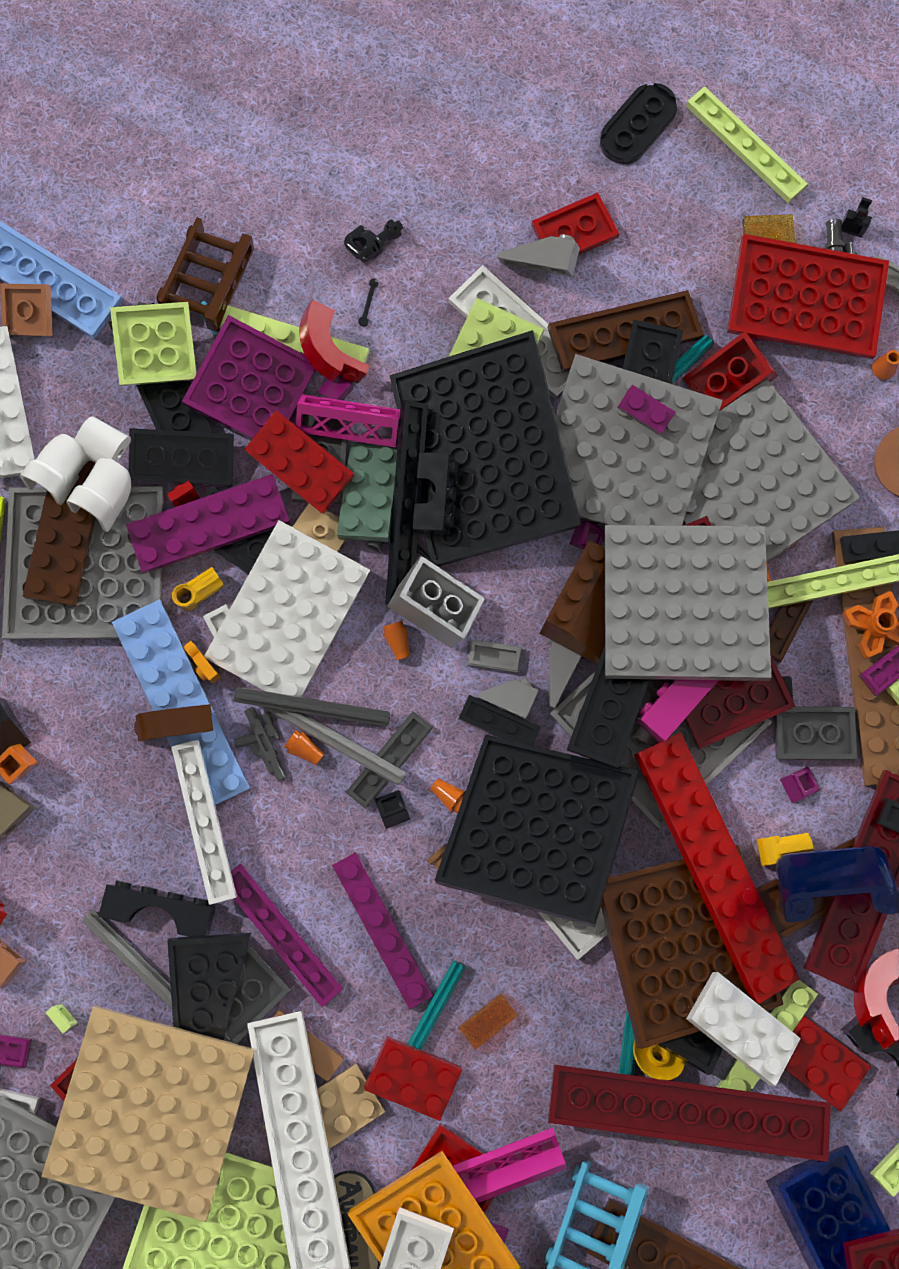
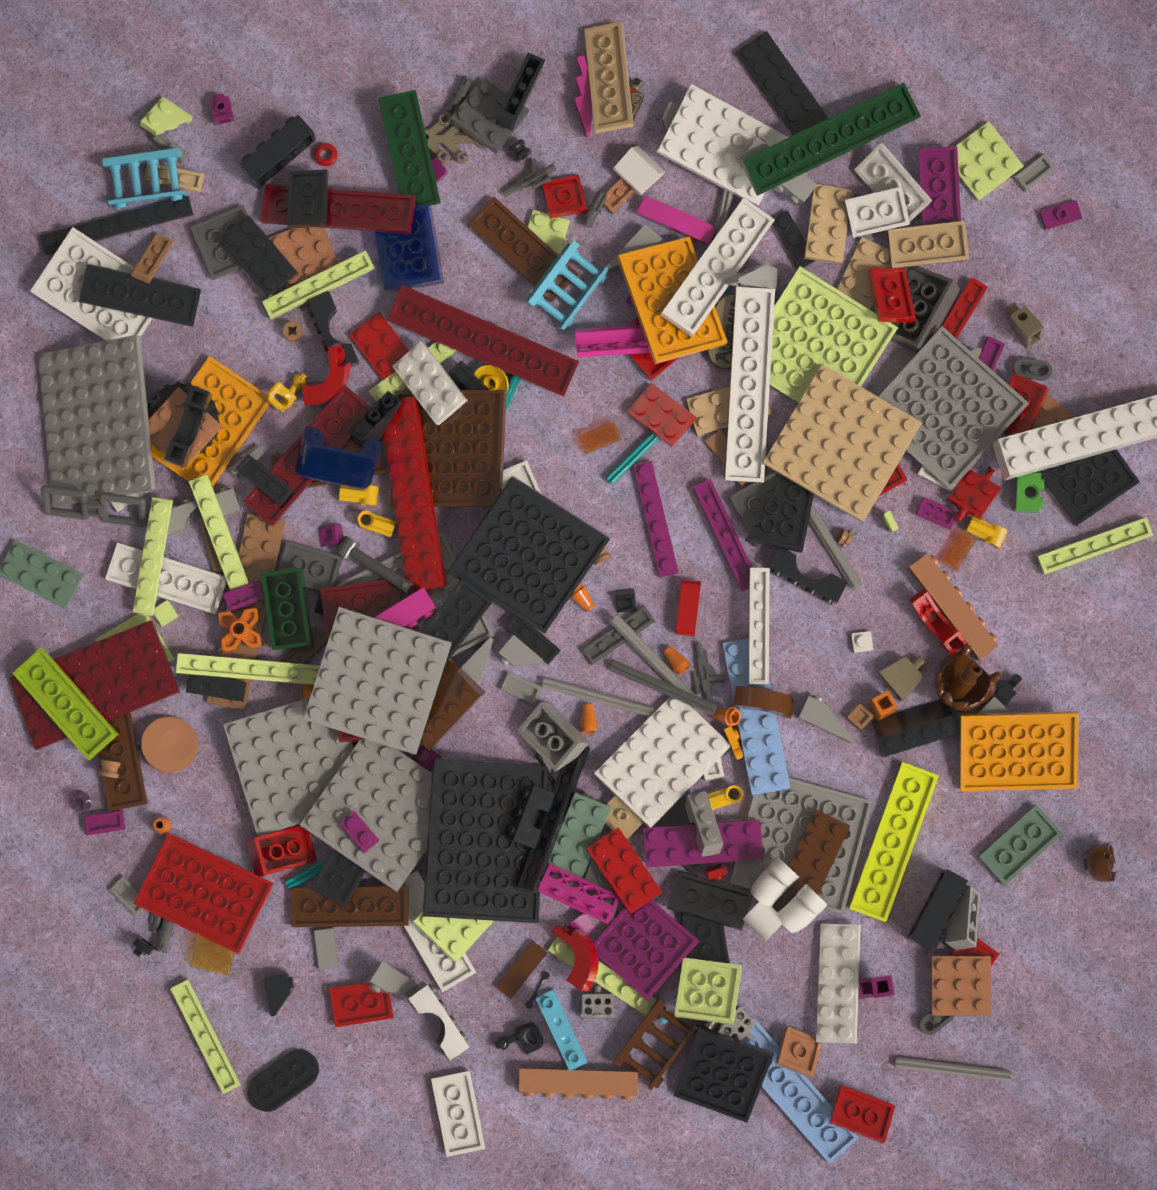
camera: 165 degrees left, 5 degrees up
(43, 743) = (860, 716): none -> medium nougat plate
(64, 842) = (862, 642): none -> white plate
(96, 728) = (821, 716): none -> light grey slope
(102, 315) = (740, 1016): none -> light grey piece
(112, 258) = (723, 1074): none -> black plate
(120, 978) = (844, 537): none -> medium nougat plate
(202, 532) = (701, 813): none -> light grey arch
(216, 692) = (728, 716): none -> orange cone
(286, 294) = (598, 1011): none -> light grey piece
(289, 208) = (578, 1082): none -> nougat brick
(306, 822) = (688, 607): none -> red beam
(324, 253) = (561, 1030): none -> medium azure fence
(394, 319) = (521, 969): none -> reddish brown tile
(394, 672) = (598, 697): none -> light grey axle
(422, 139) = (458, 1113): none -> white plate
(500, 239) = (449, 1040): none -> arch
(636, 278) = (326, 948): none -> light grey tile
(680, 215) = (278, 991): none -> black slope
(747, 815) = (378, 525): none -> yellow piece
(771, 770) = (349, 550): none -> dark grey piece
(798, 954) = (375, 420): none -> black slope
(829, 667) = (287, 608): none -> dark green brick

